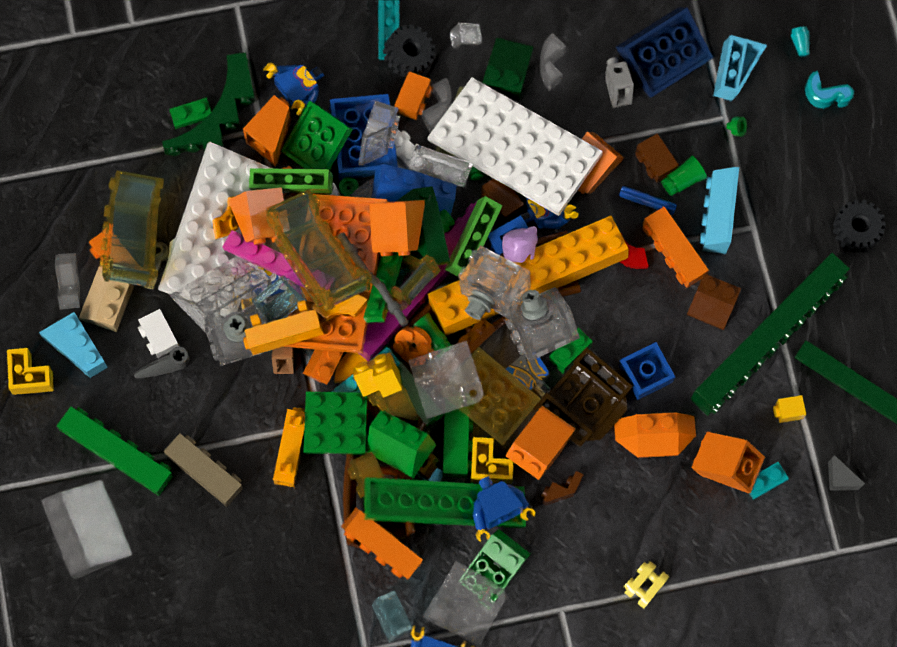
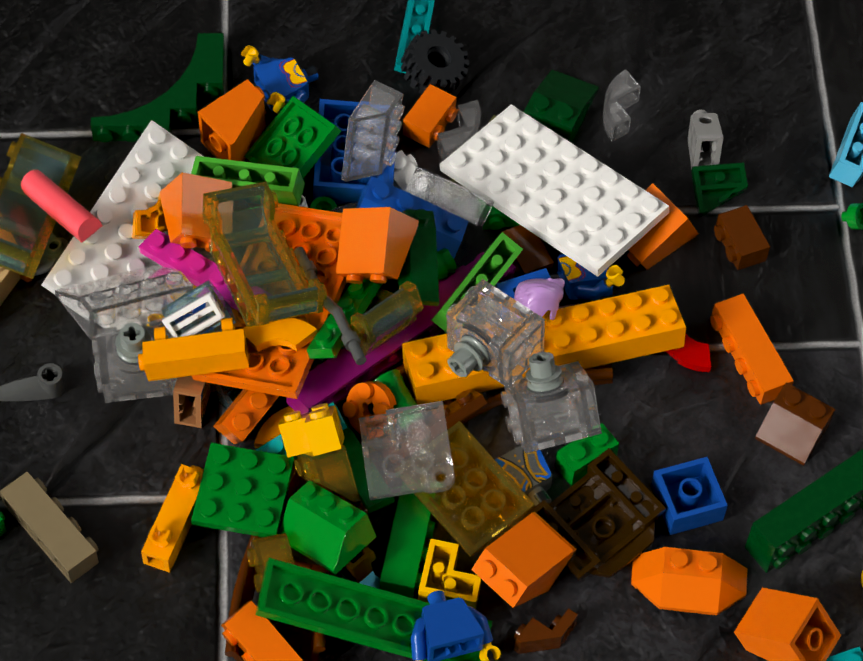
camera: 10 degrees right, 15 degrees down
(158, 223) = (59, 205): none -> coral brick
(158, 333) = (29, 344): white brick -> none
(190, 113) = (133, 96): green plate -> none
(289, 294) = (213, 306): none -> white tile
(465, 34) = (513, 58): clear bracket -> none
(633, 116) = (717, 185): none -> dark green wing
(646, 199) = (719, 285): blue axle -> none
(665, 51) = (772, 115): dark blue slope -> none
(684, 176) = (776, 264): green plant -> none
(720, 210) = (818, 311): medium azure slope -> none

